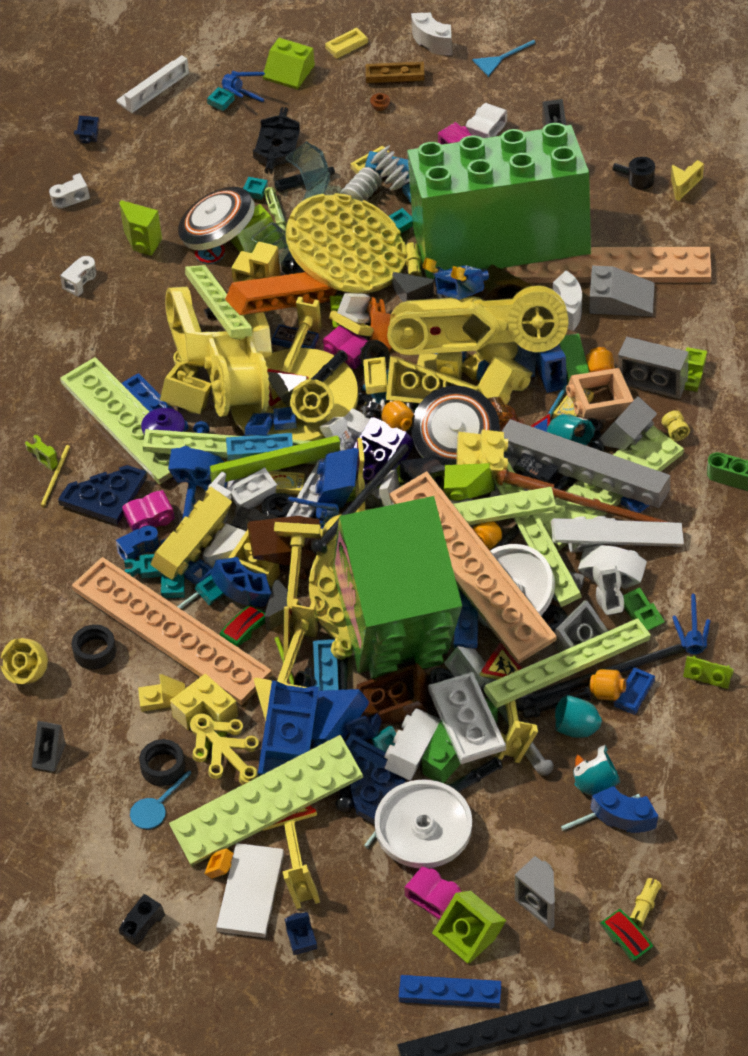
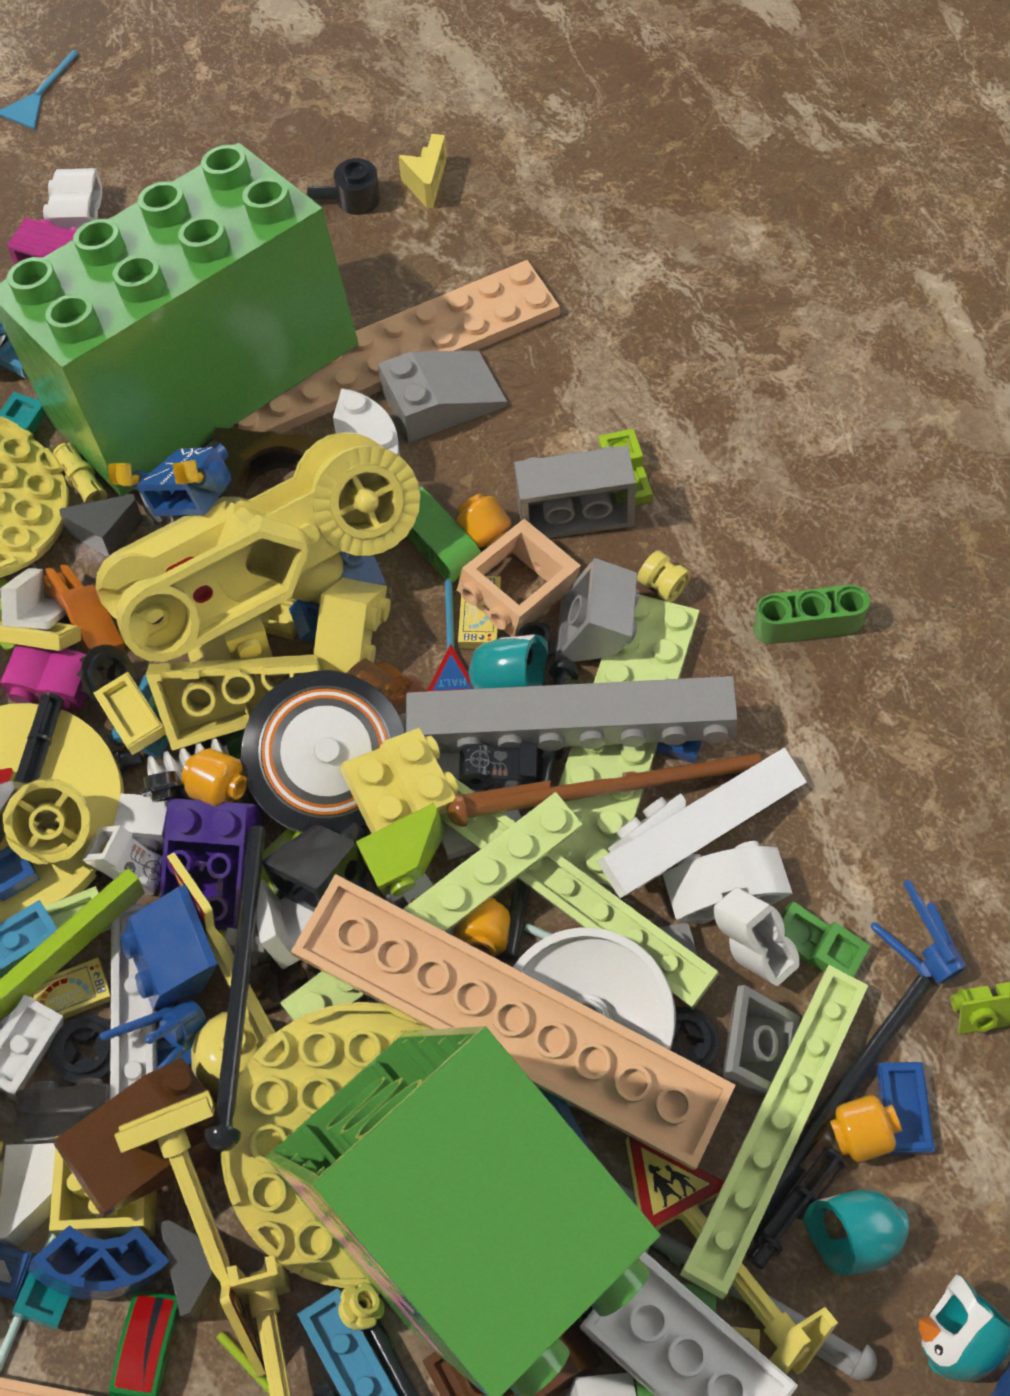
camera: 30 degrees left, 10 degrees up
(553, 112) = (173, 150): dark grey slope -> none
(555, 360) = (415, 566): blue torso -> none

